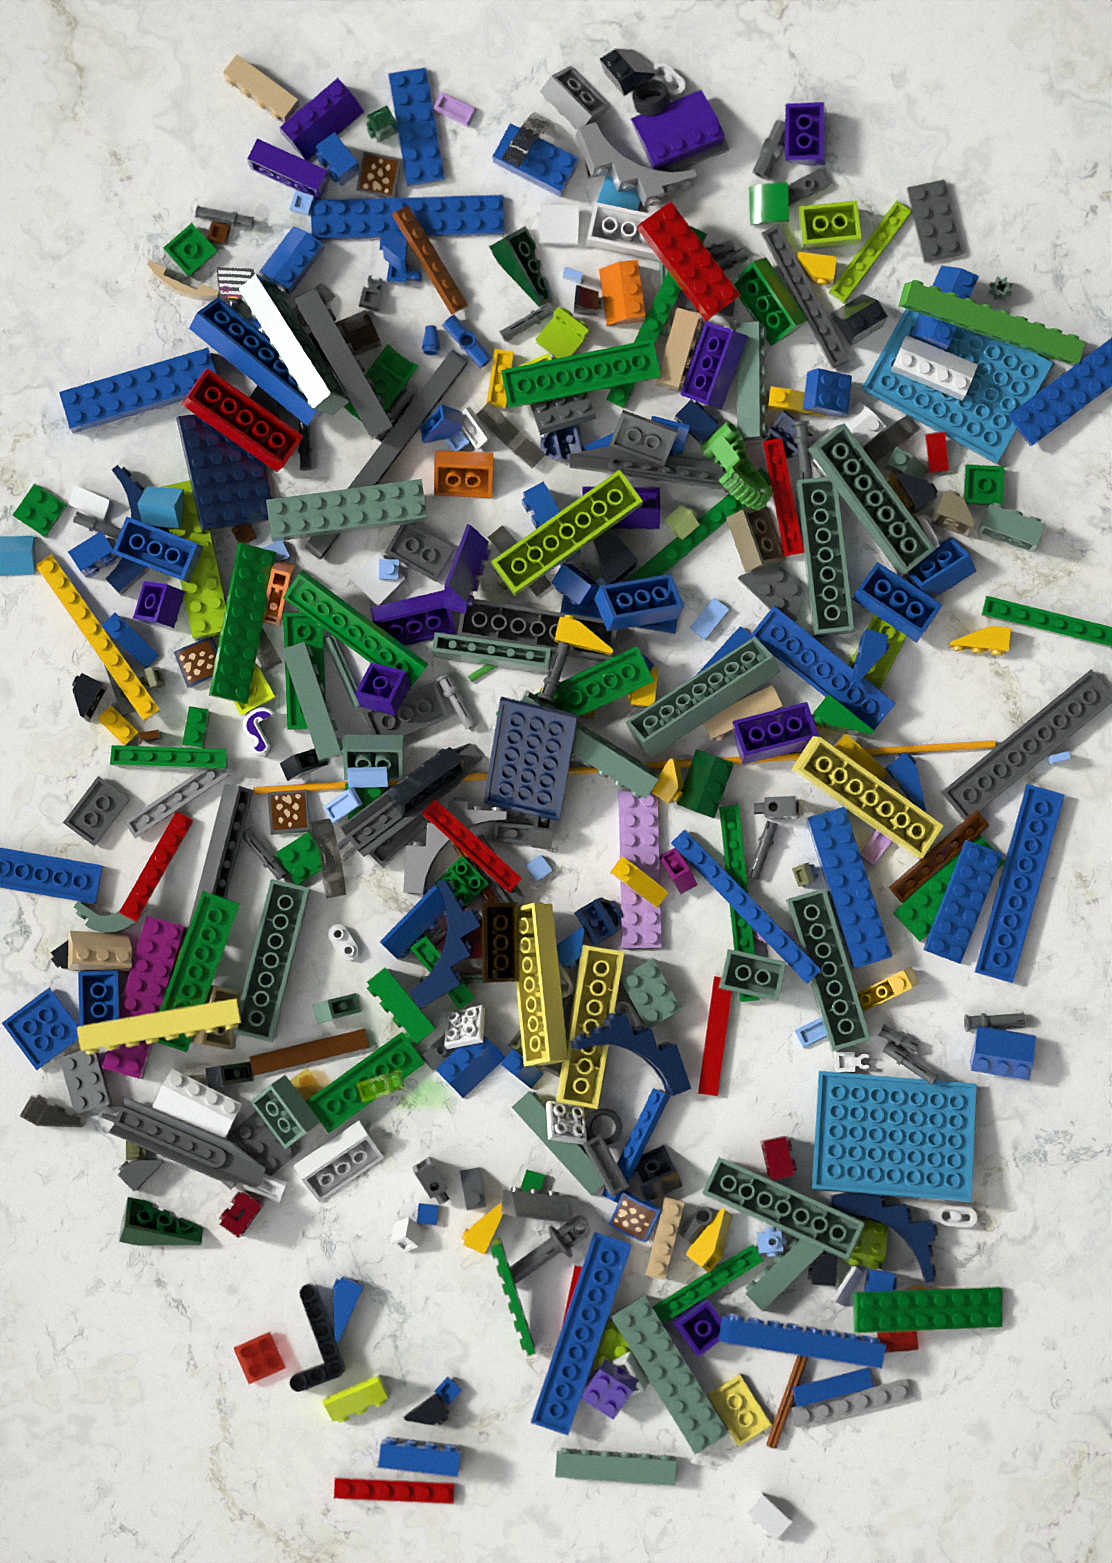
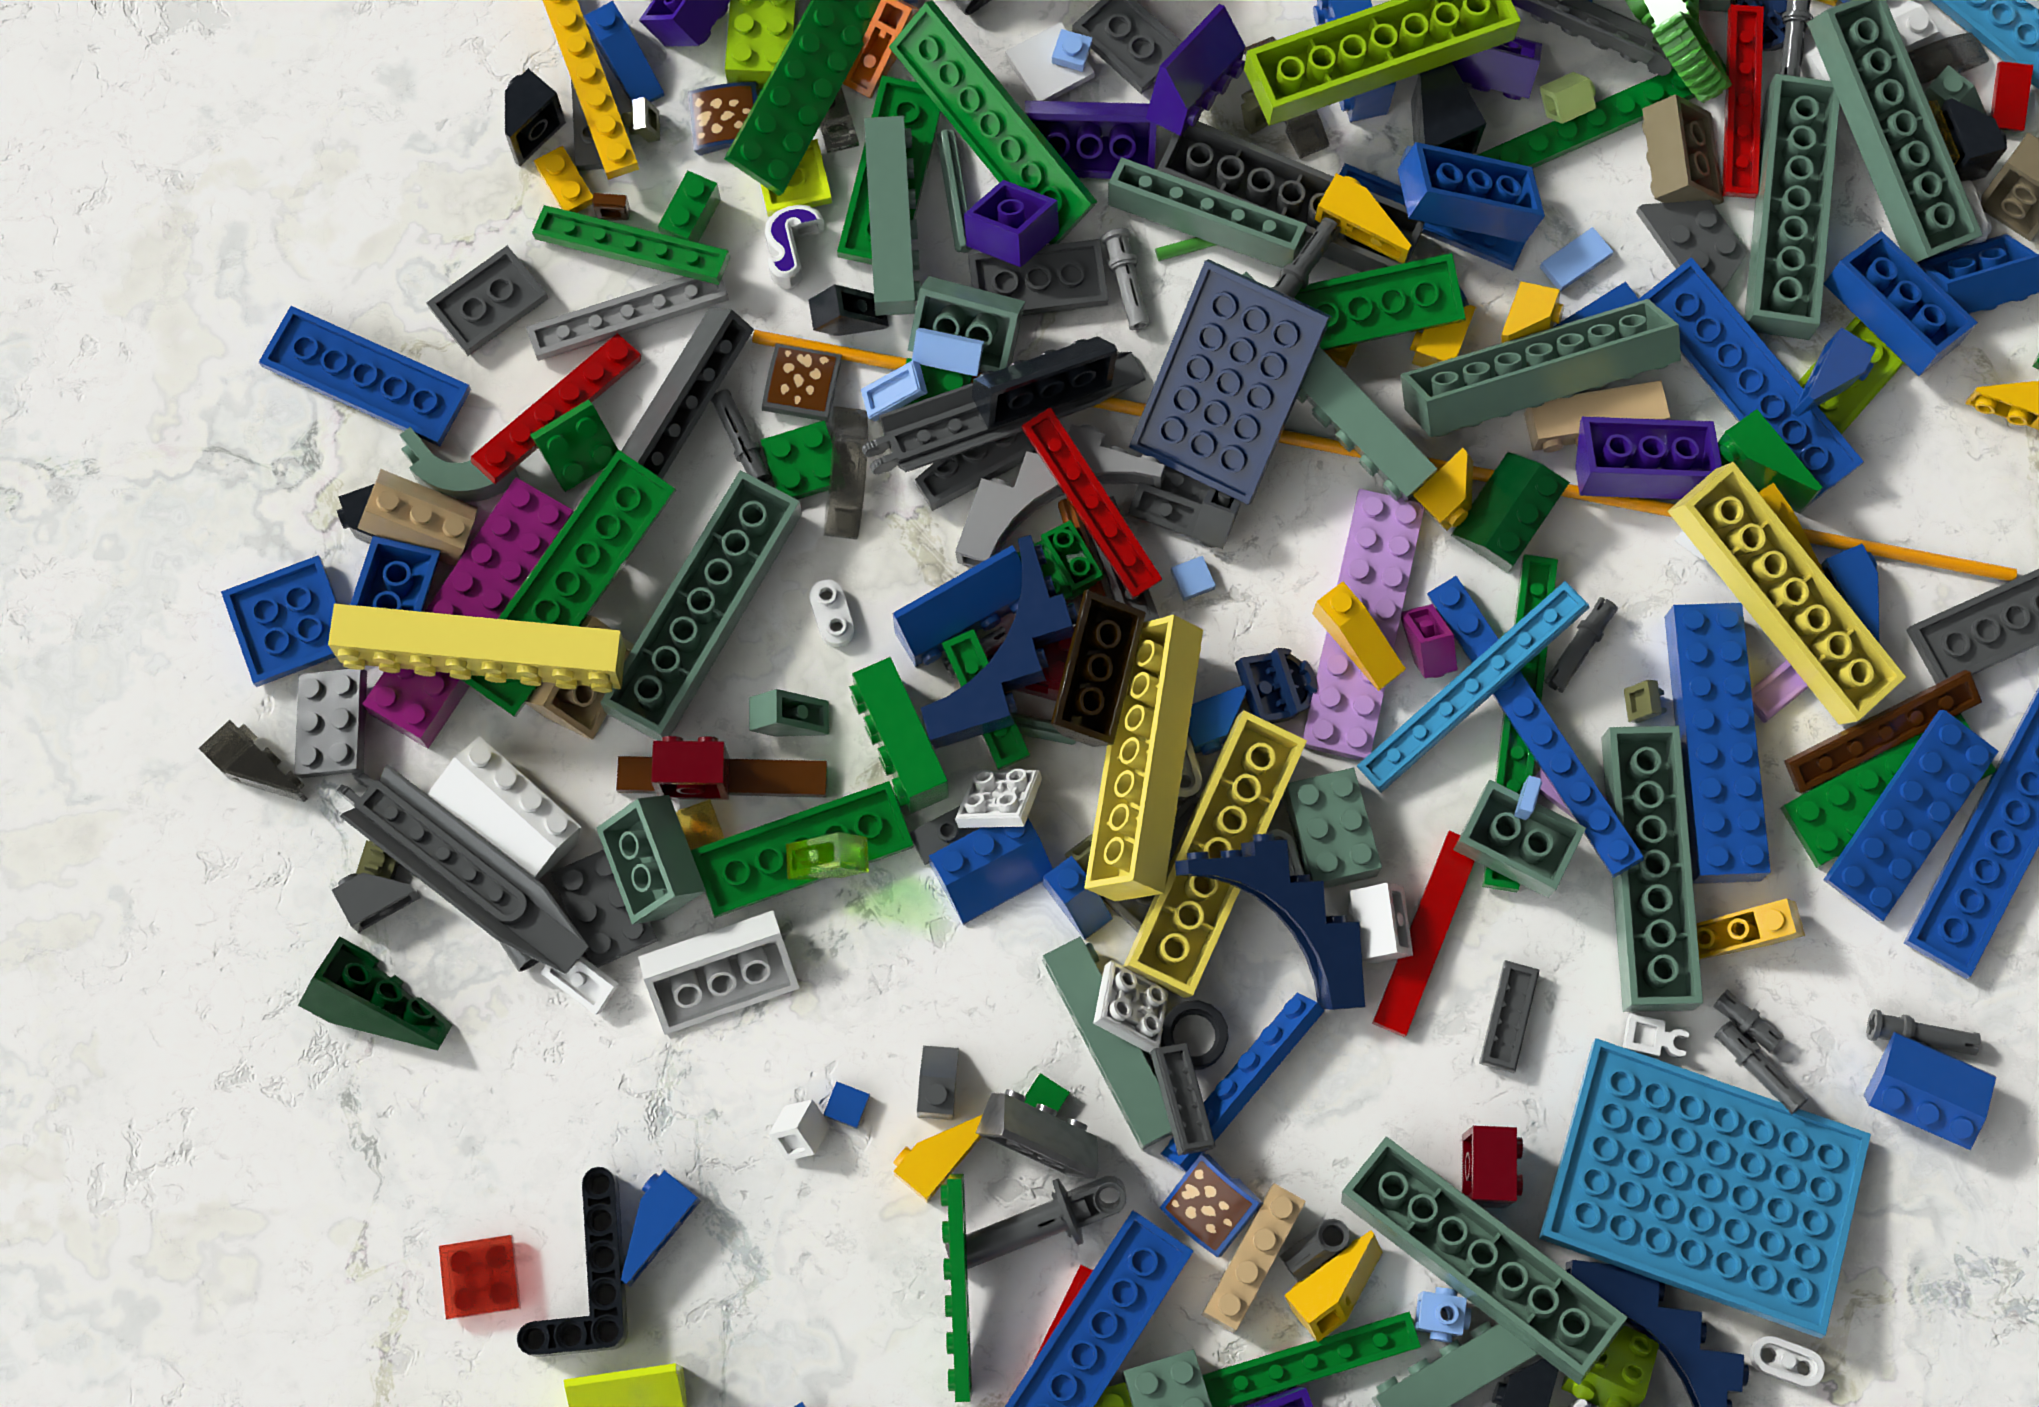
camera: 15 degrees right, 10 degrees down
(174, 886) = (575, 445): none -> green plate
(229, 1074) = (574, 776): black slope -> none
(241, 1214) = (523, 1013): dark red piece -> none
(293, 1057) = (691, 768): none -> dark red brick
(427, 1174) = (866, 1030): dark grey torso -> none
(575, 584) = (1370, 145): blue brick -> none
(656, 1174) = (1267, 1142): black slope -> none
(689, 1039) = (1382, 922): none -> white brick
(691, 662) = (1532, 311): none -> yellow slope
(708, 894) = (1473, 686): none -> dark azure tile
(750, 957) = (1528, 797): none -> light blue tile
(770, 1070) = (1509, 1016): none -> dark grey plate
(787, 807) = (1627, 579): dark grey torso -> none
(811, 1033) = (1594, 972): light blue tile -> none

